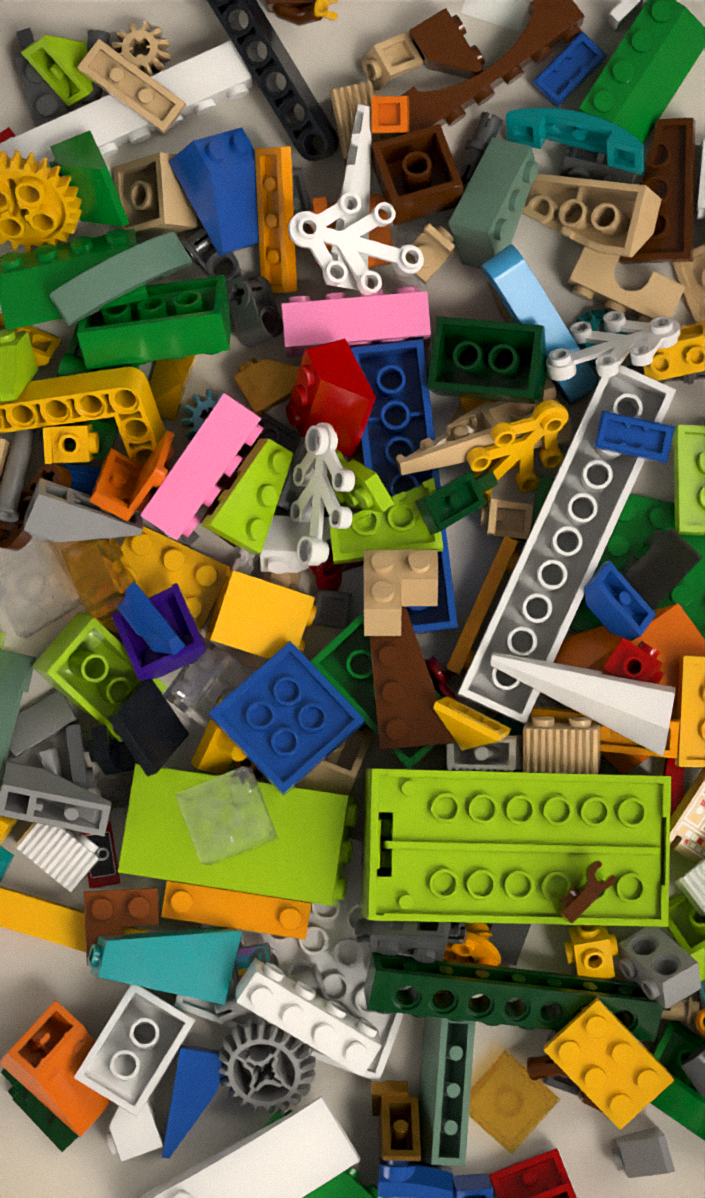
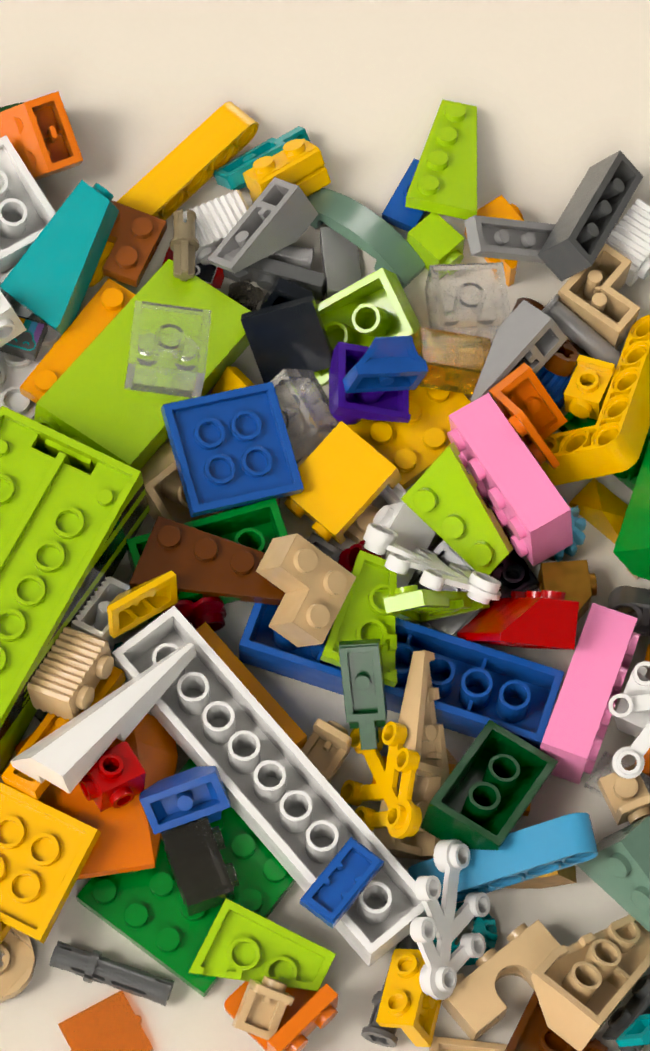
camera: 110 degrees right, 20 degrees down
(102, 862) = (184, 245): none -> dark tan axle

